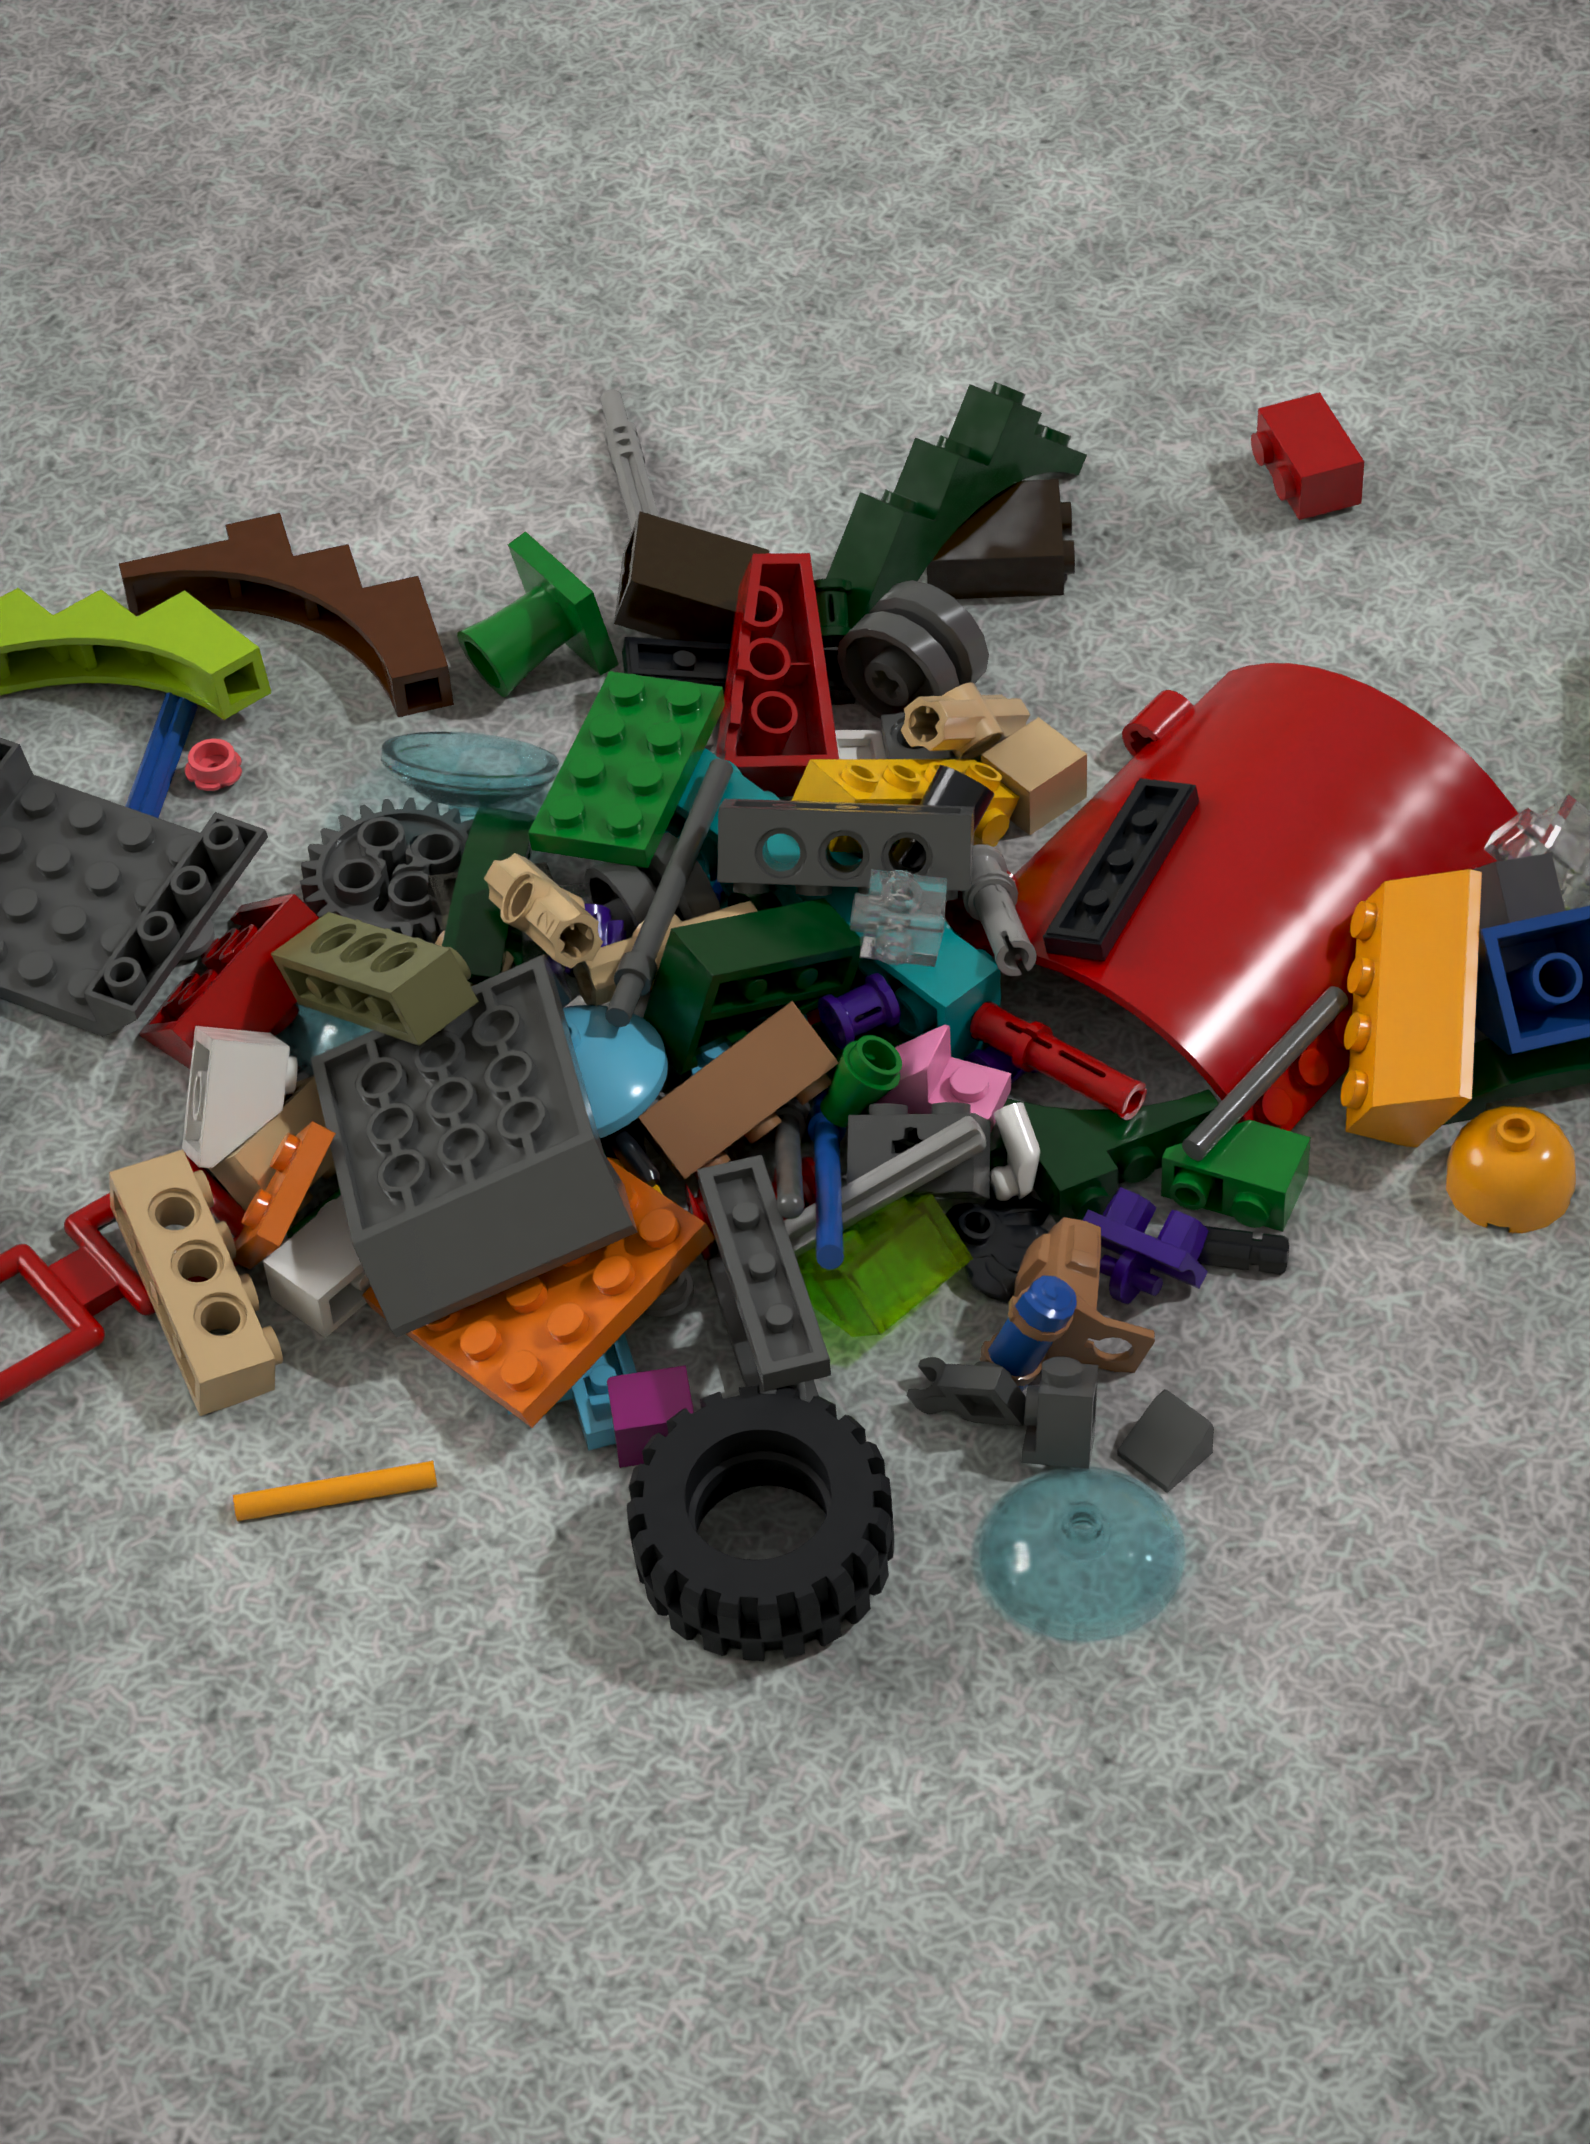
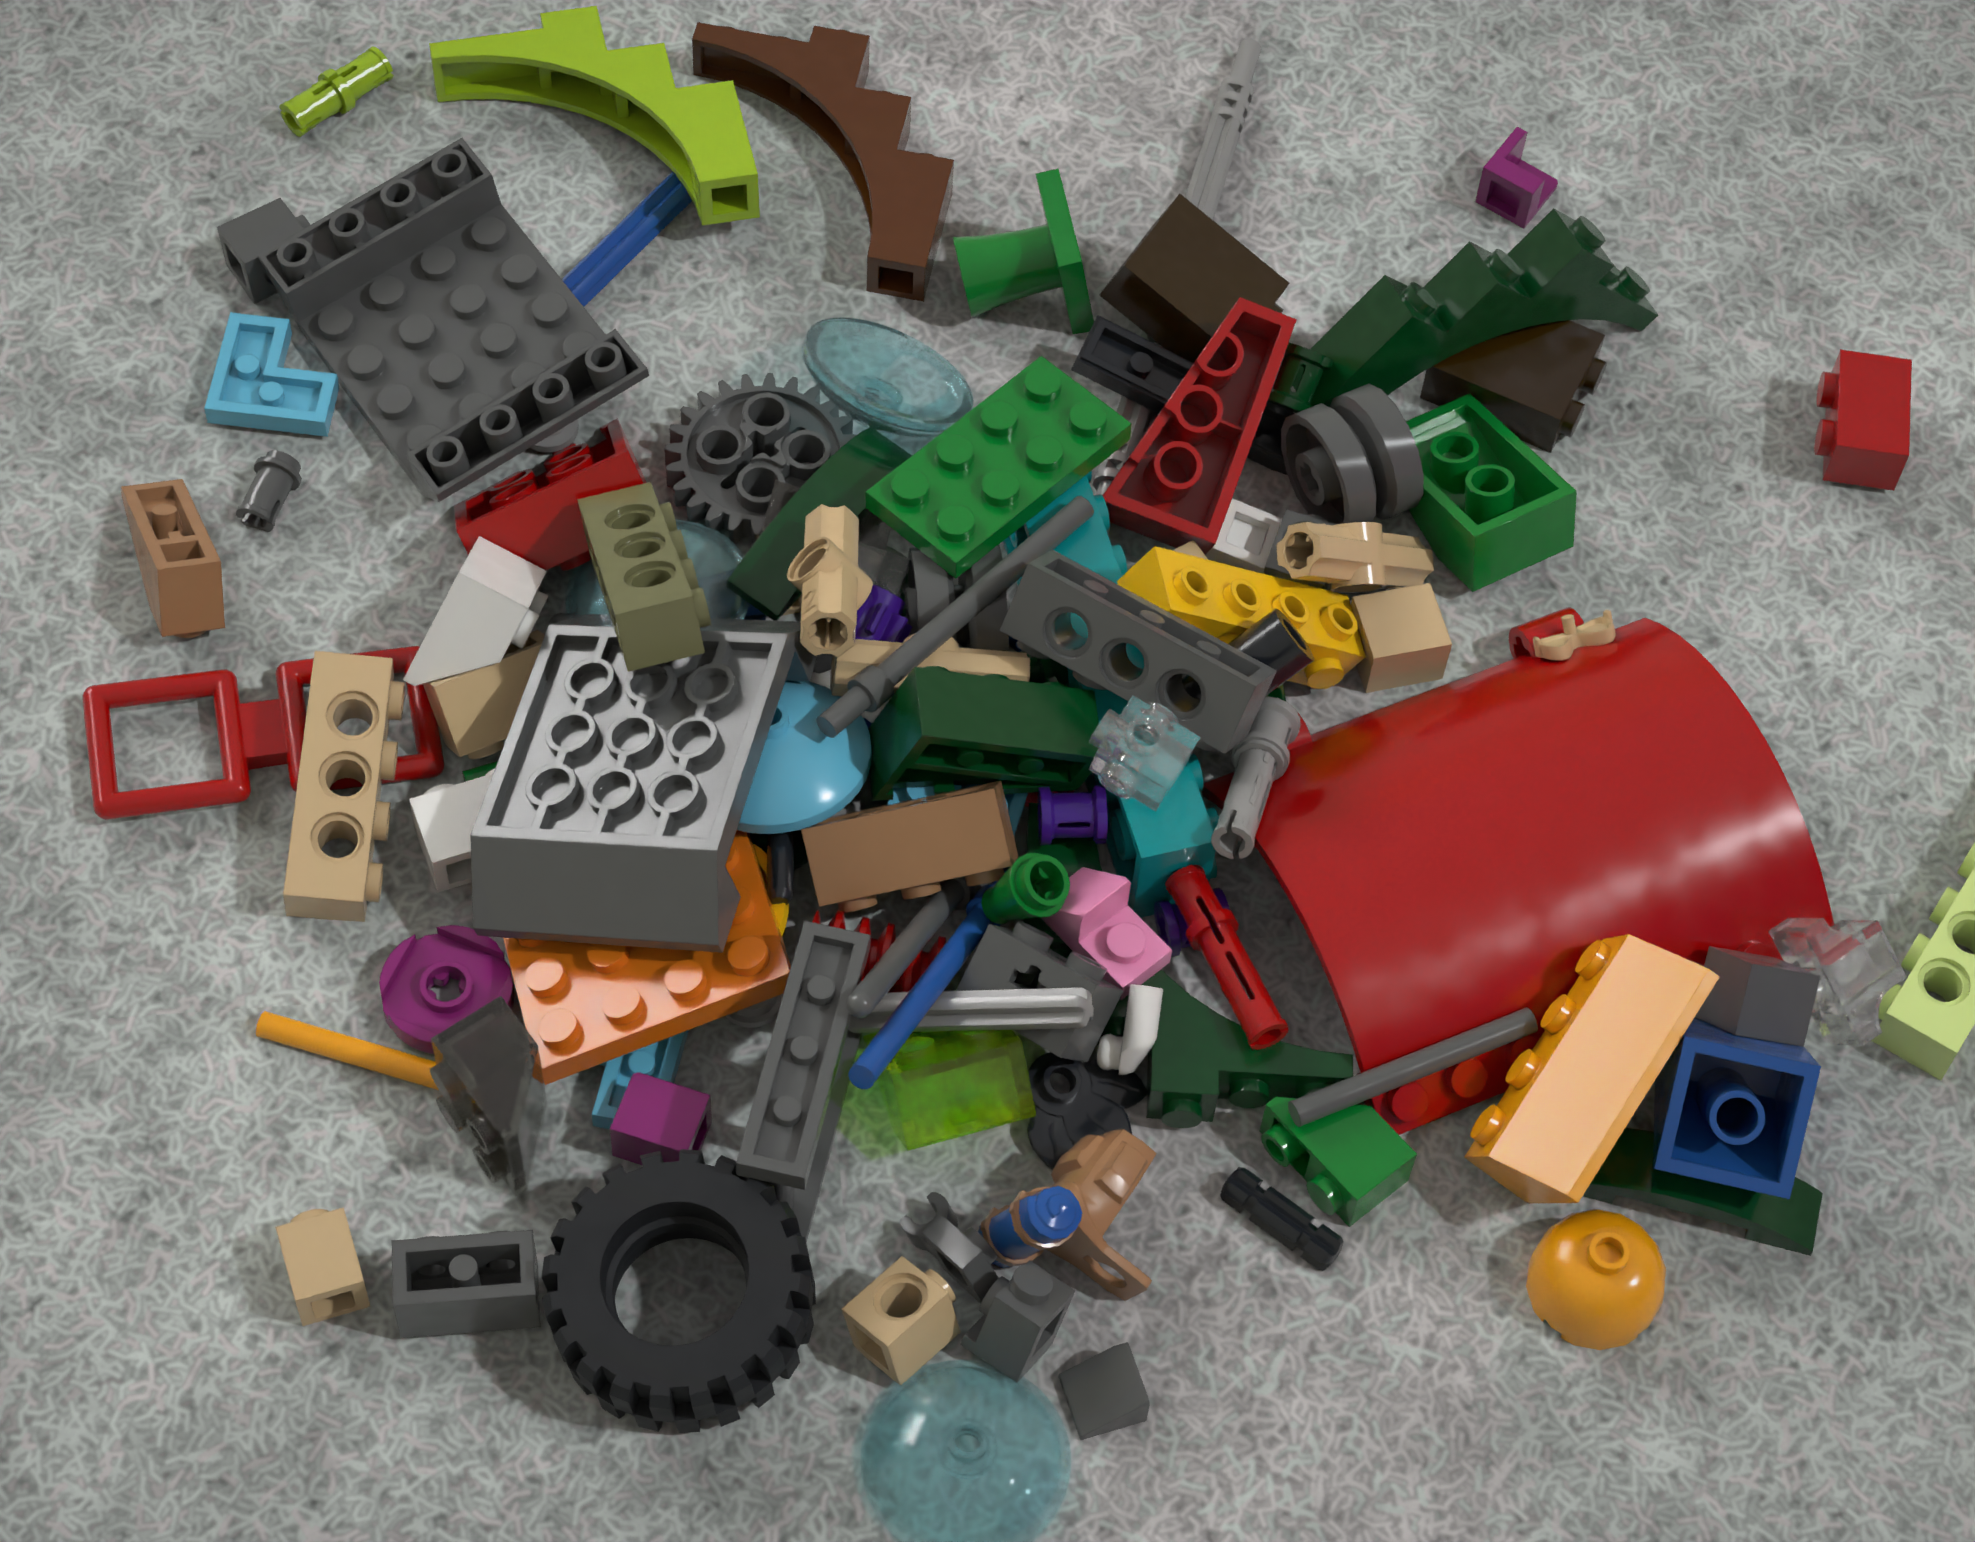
camera: 20 degrees right, 10 degrees up
(213, 765) = (668, 253): coral plate -> none
(275, 1208) = (433, 760): orange wing -> none
(395, 1434) = (435, 959): none -> magenta plate
(424, 1661) = (322, 1265): none -> tan brick
(491, 1448) = (493, 1089): none -> clear smoke slope
(566, 1610) = (465, 1283): none -> dark grey brick
(903, 410) = (1513, 186): none -> magenta panel
(961, 1464) = (883, 1332): none -> tan brick
(1045, 639) = (1487, 495): none -> green slope
(1121, 869) = (1390, 795): black tile -> none
(1170, 1253) = (1218, 1203): dark purple hips -> none
(1195, 697) = (1592, 633): none -> tan piece

